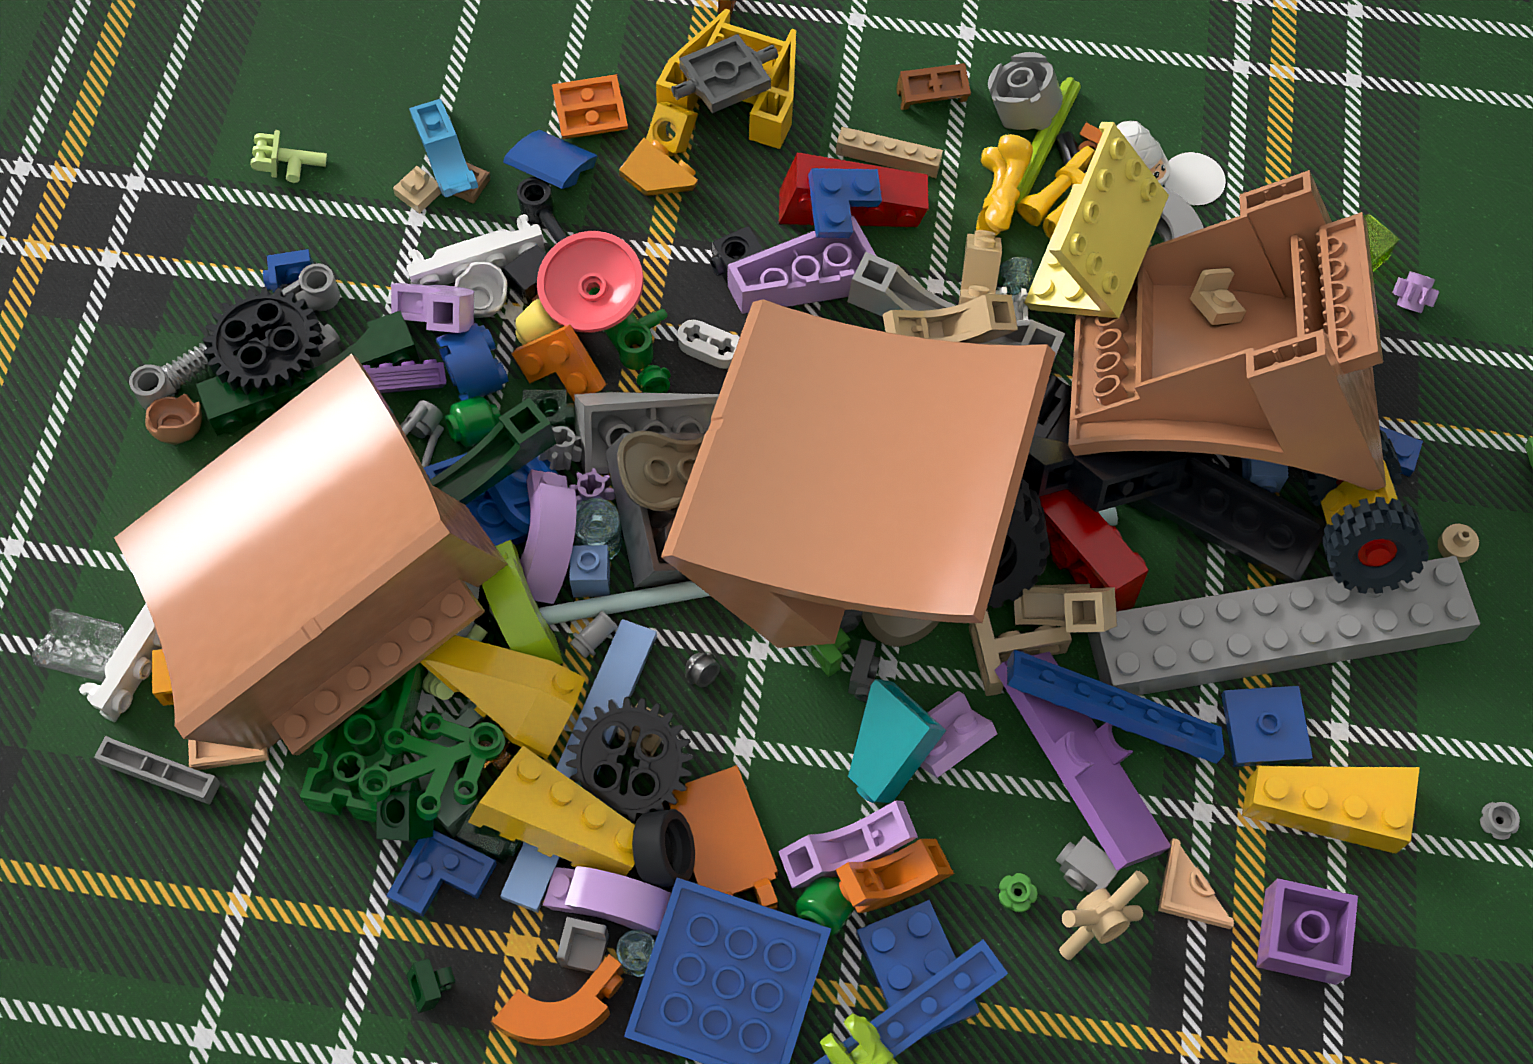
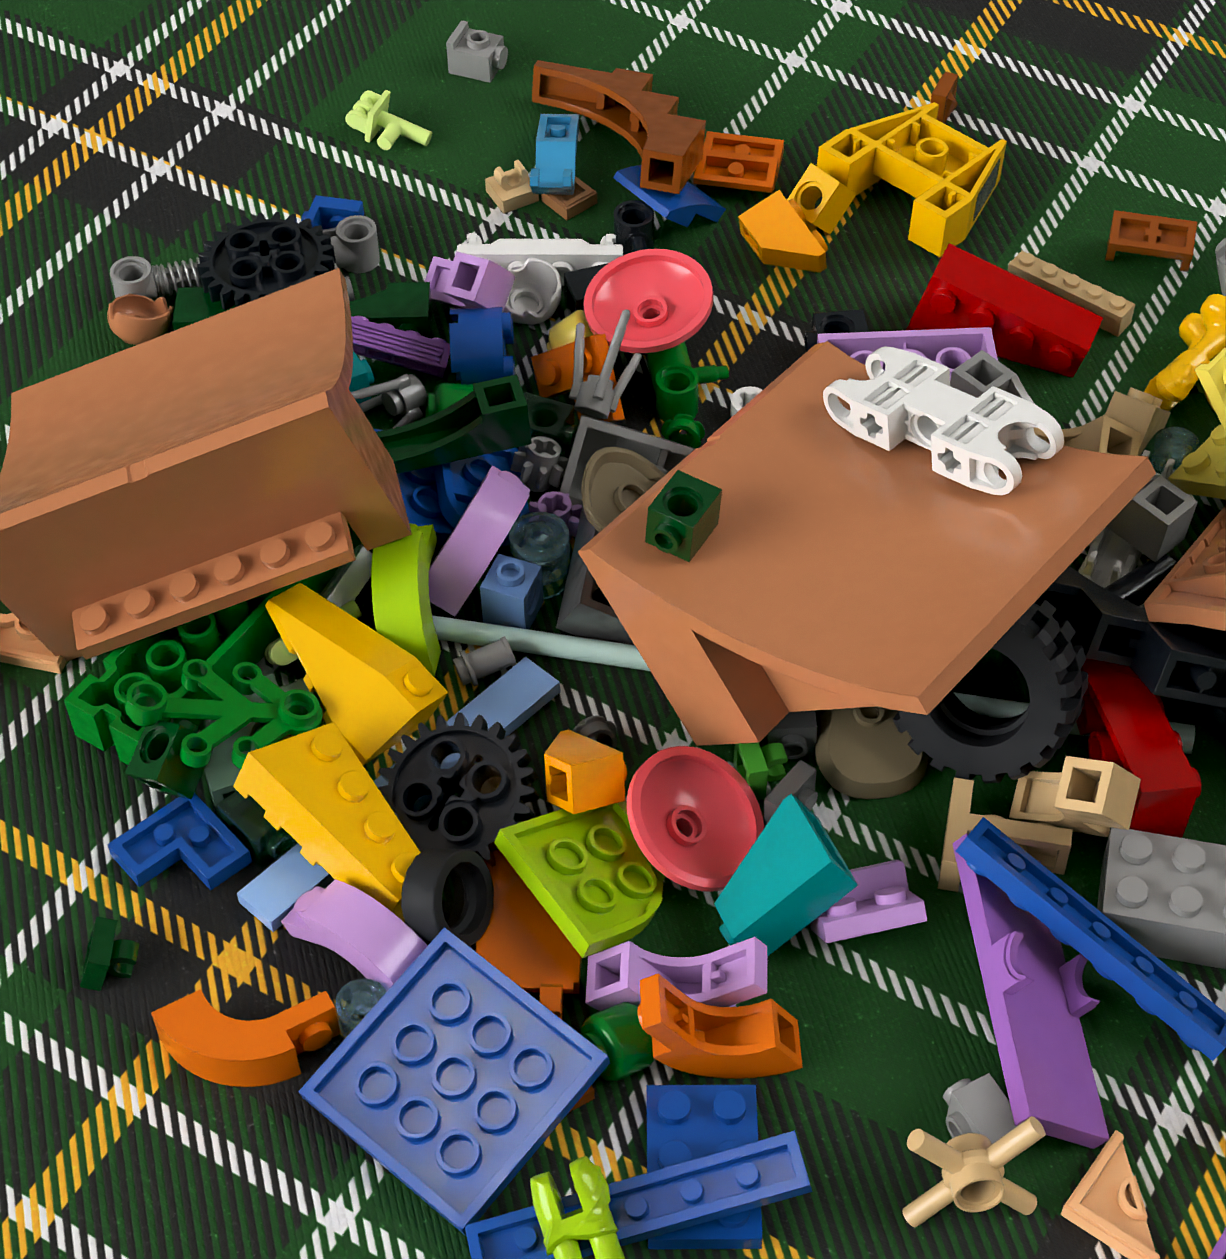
camera: 25 degrees right, 15 degrees down
(328, 62) = (475, 53): none -> light grey brick
(500, 91) = (625, 103): none -> dark orange arch
(582, 945) = (300, 972): light grey panel -> none
(586, 378) = (596, 396): none -> light grey plant
(715, 710) = (583, 773): none -> light orange slope
(725, 73) = (901, 152): dark grey plate -> none
(736, 492) = (683, 515): none -> dark green brick
(752, 784) = (586, 874): none -> lime plate
(818, 704) = (707, 803): none -> coral dish
(835, 192) = (979, 292): blue plate -> none
(906, 359) = (964, 432): none -> white piece
(1012, 901) = (871, 1132): bright green plate -> none

